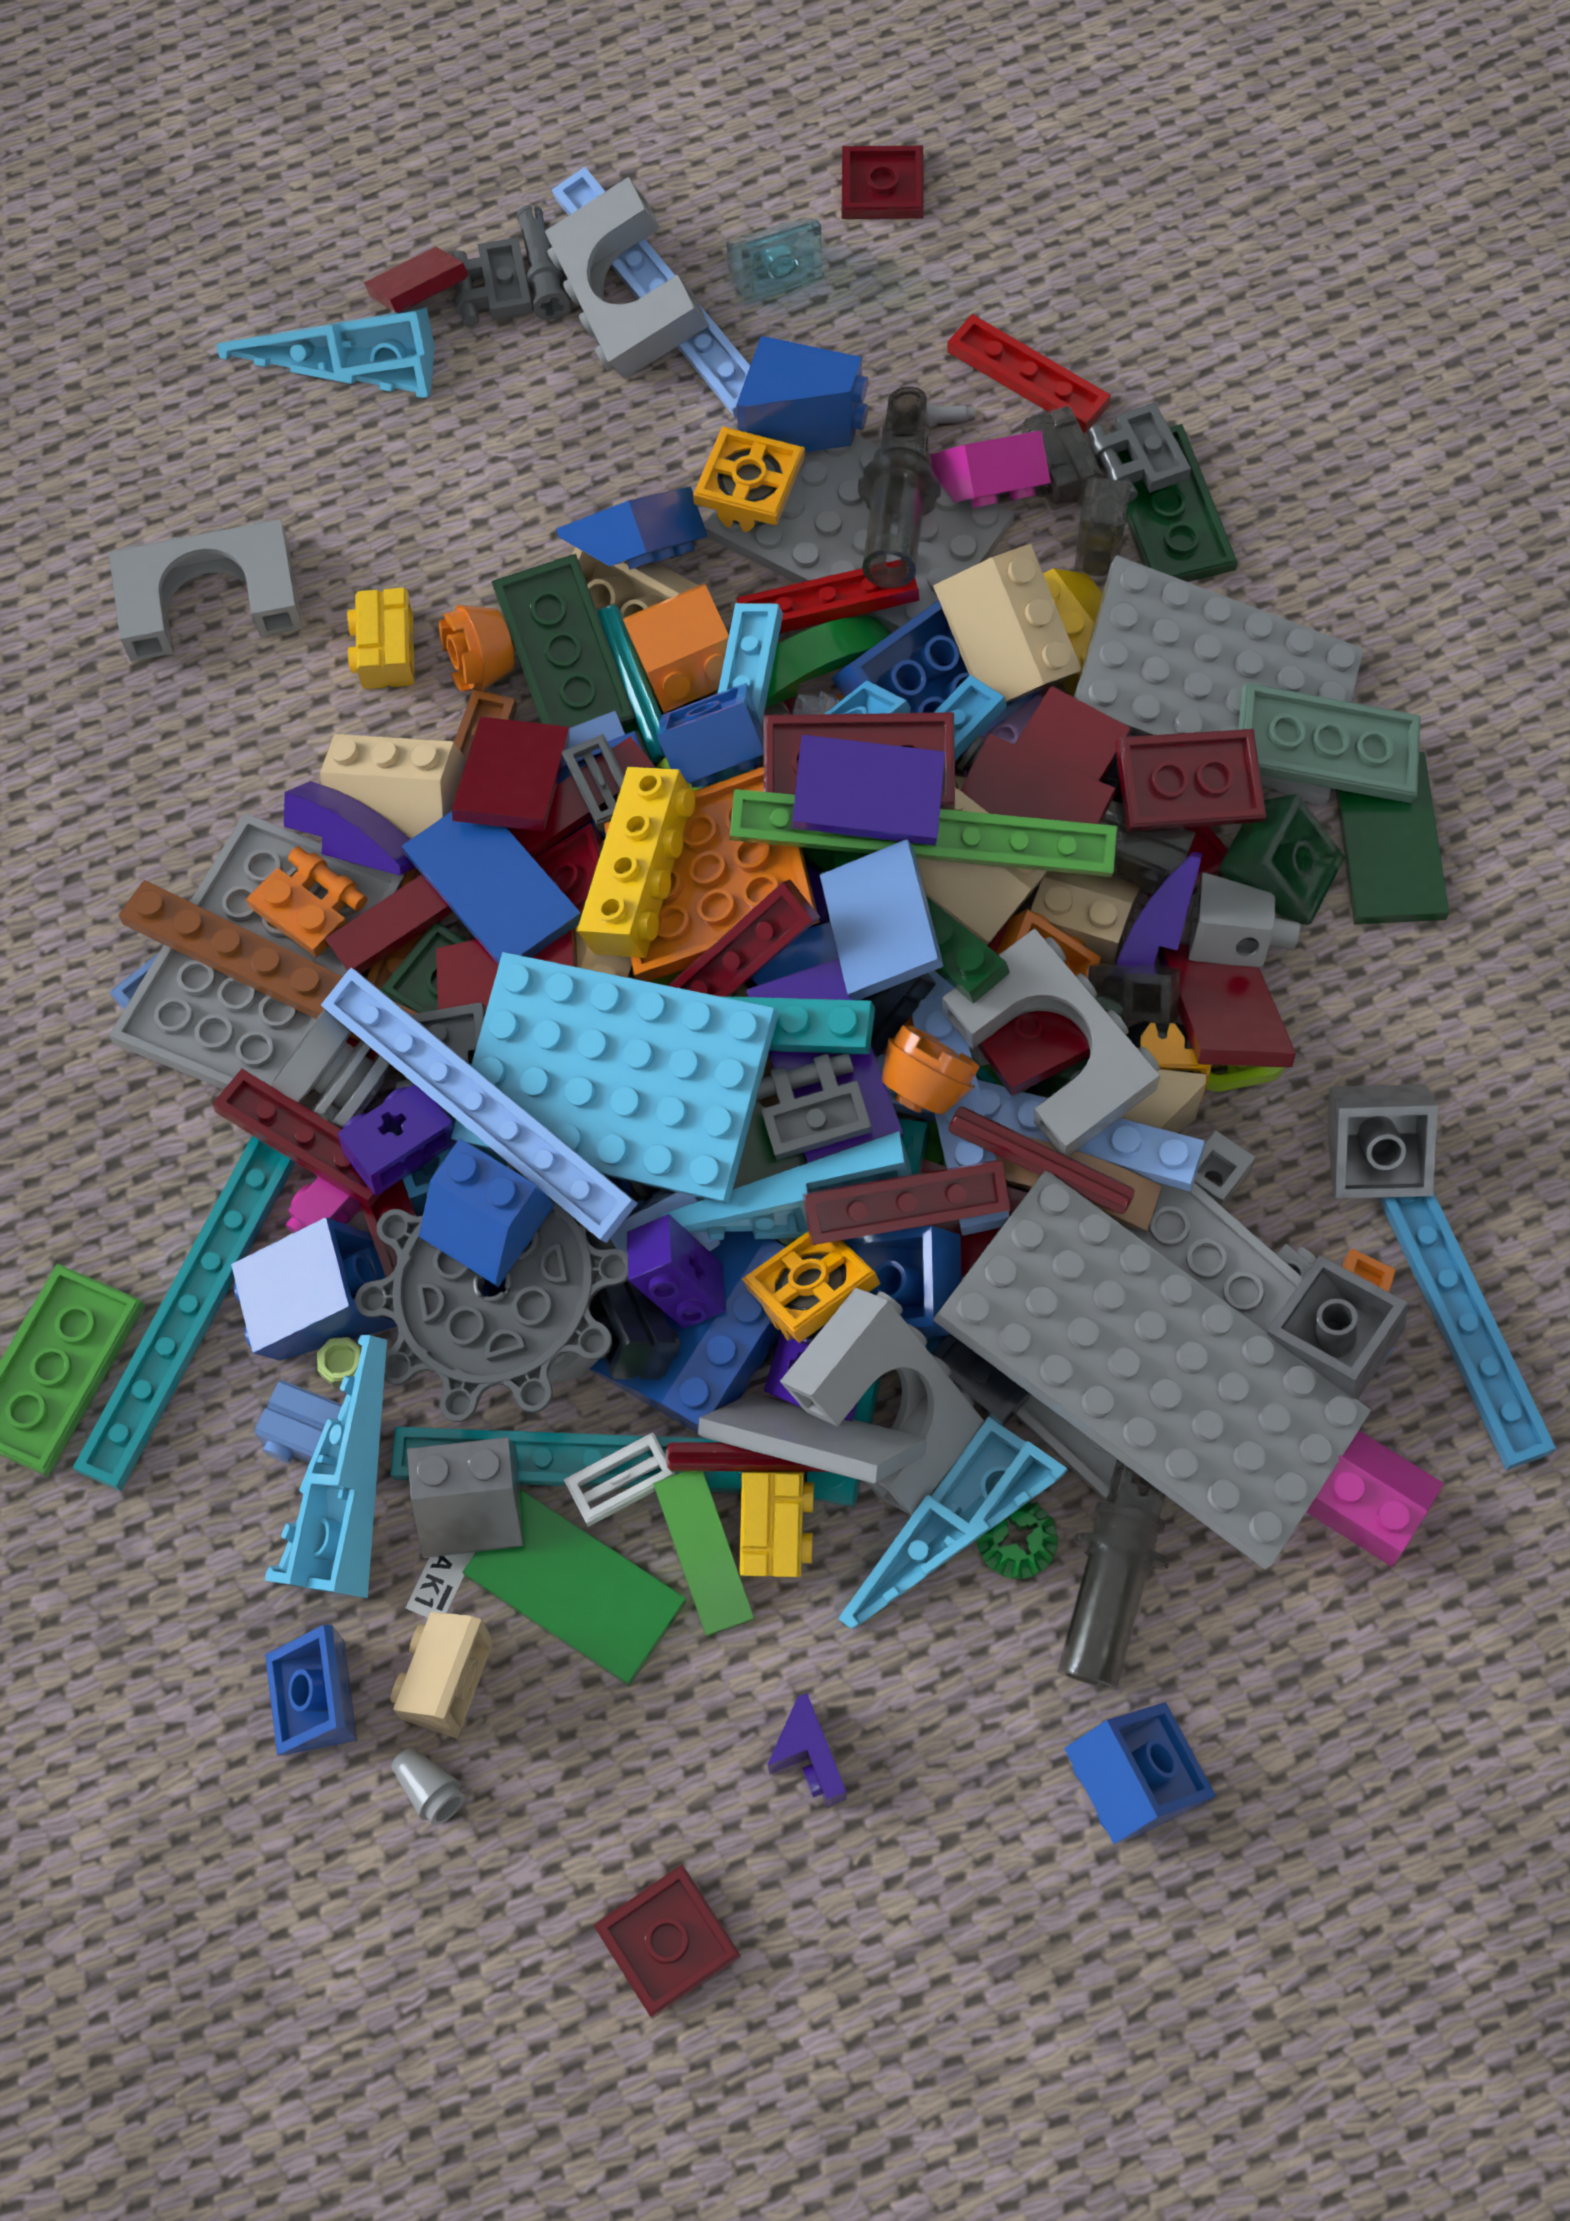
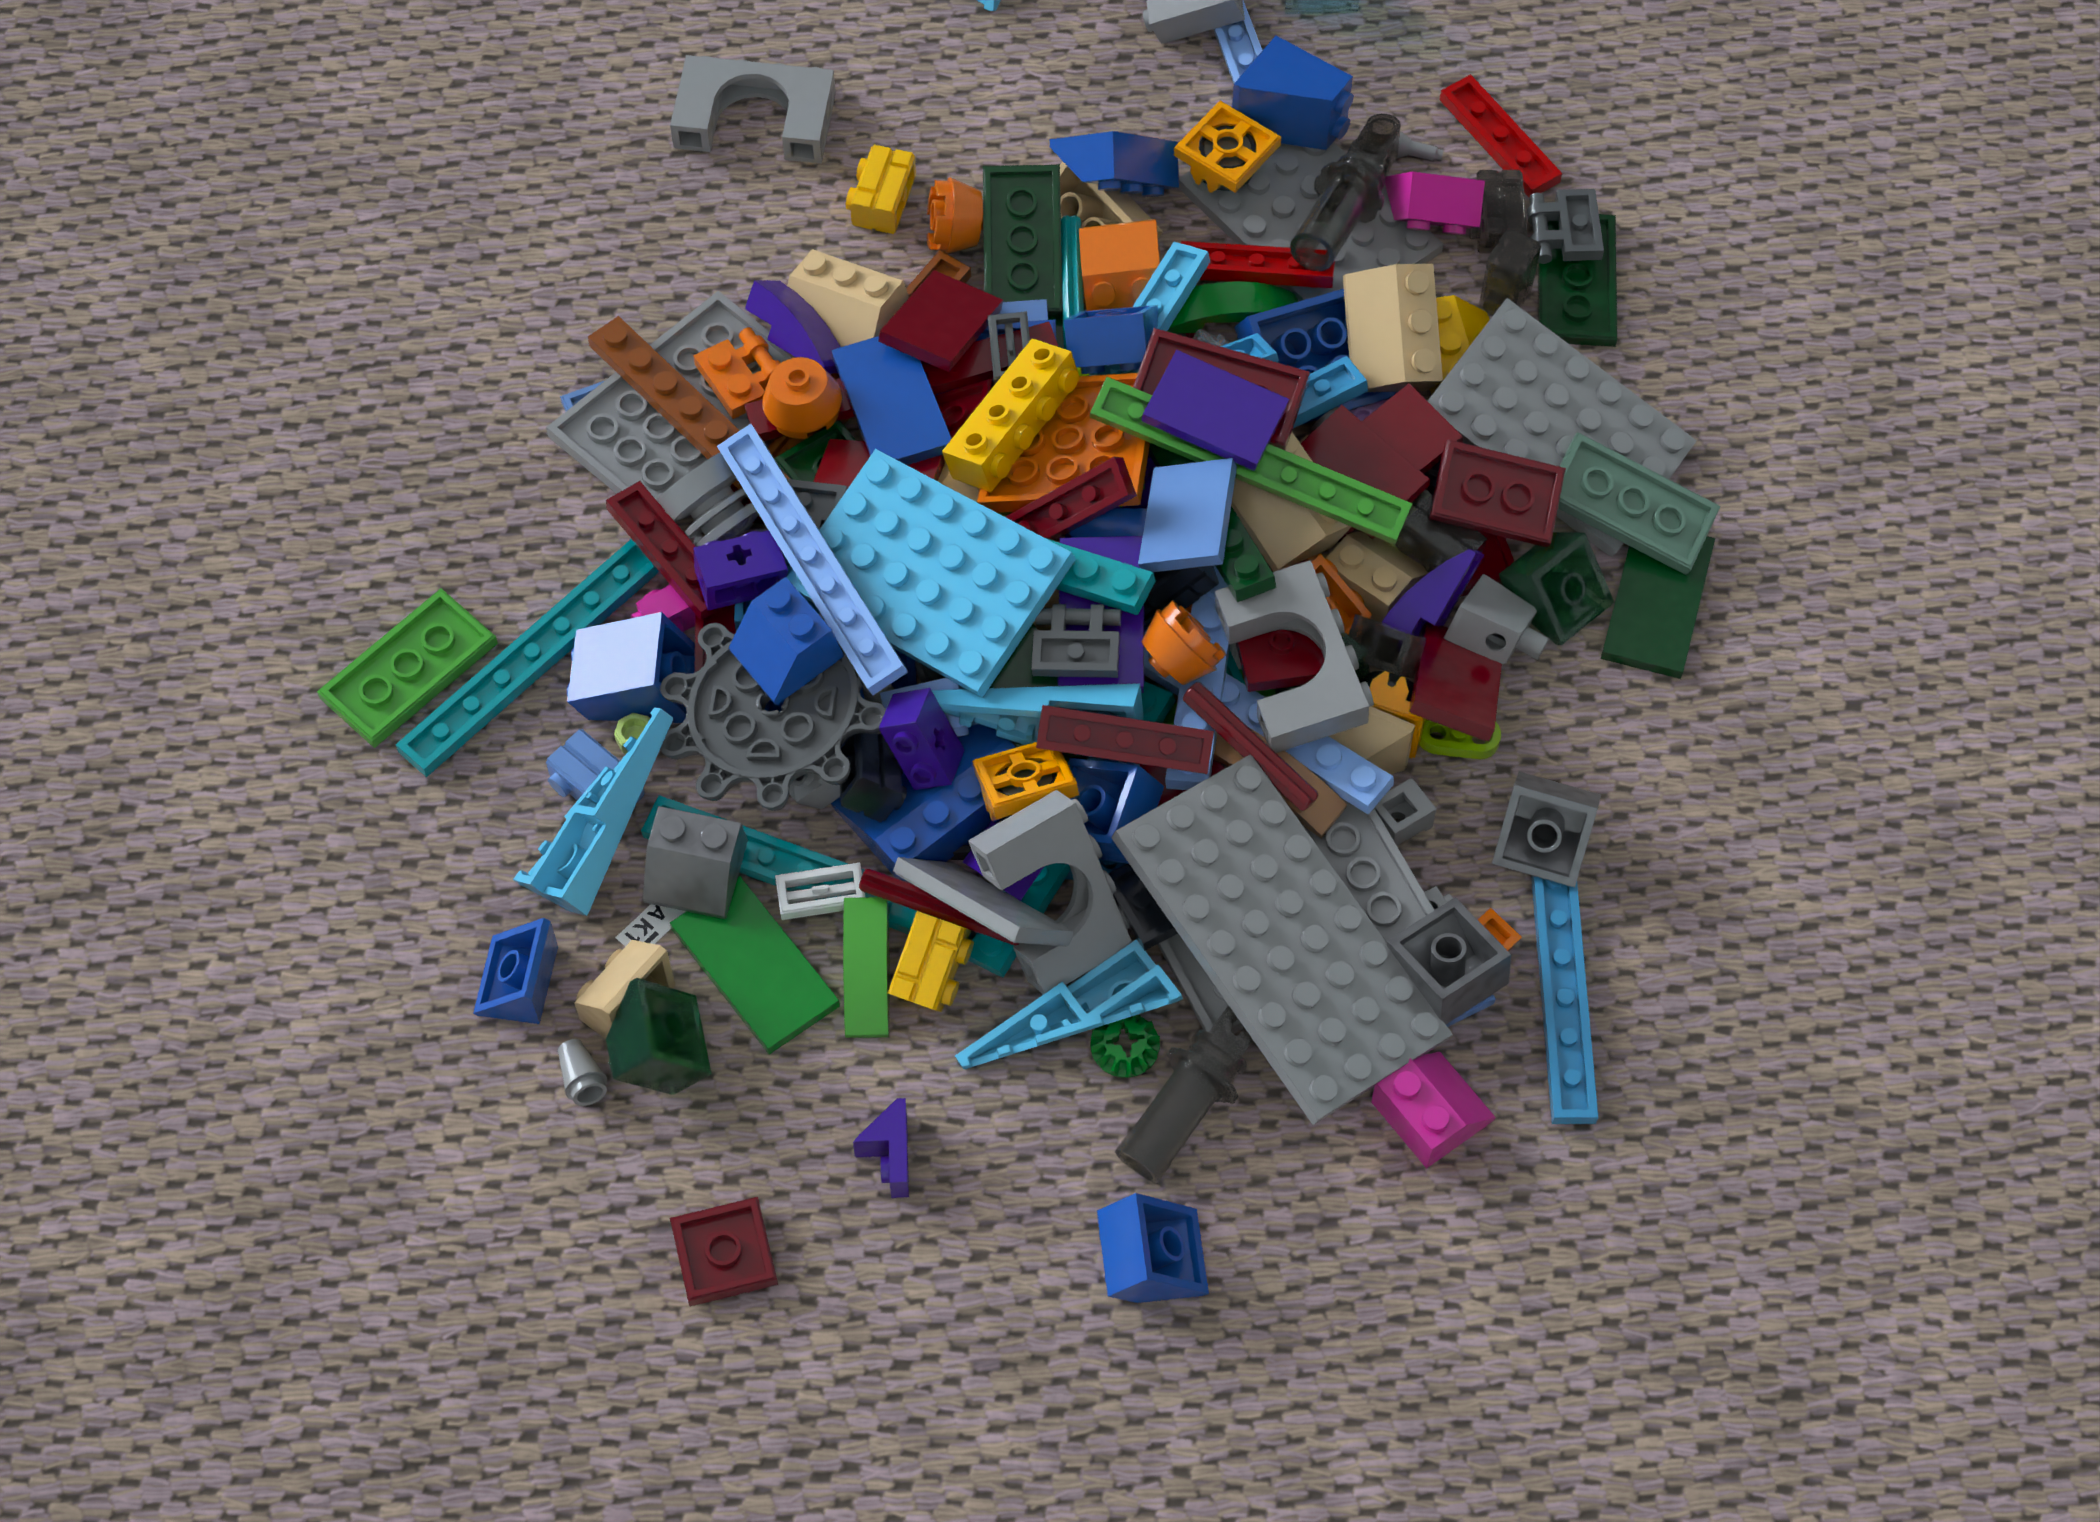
camera: 15 degrees right, 5 degrees down
(389, 913) = (801, 398): none -> orange cone
(504, 1721) = (658, 1039): none -> clear green slope

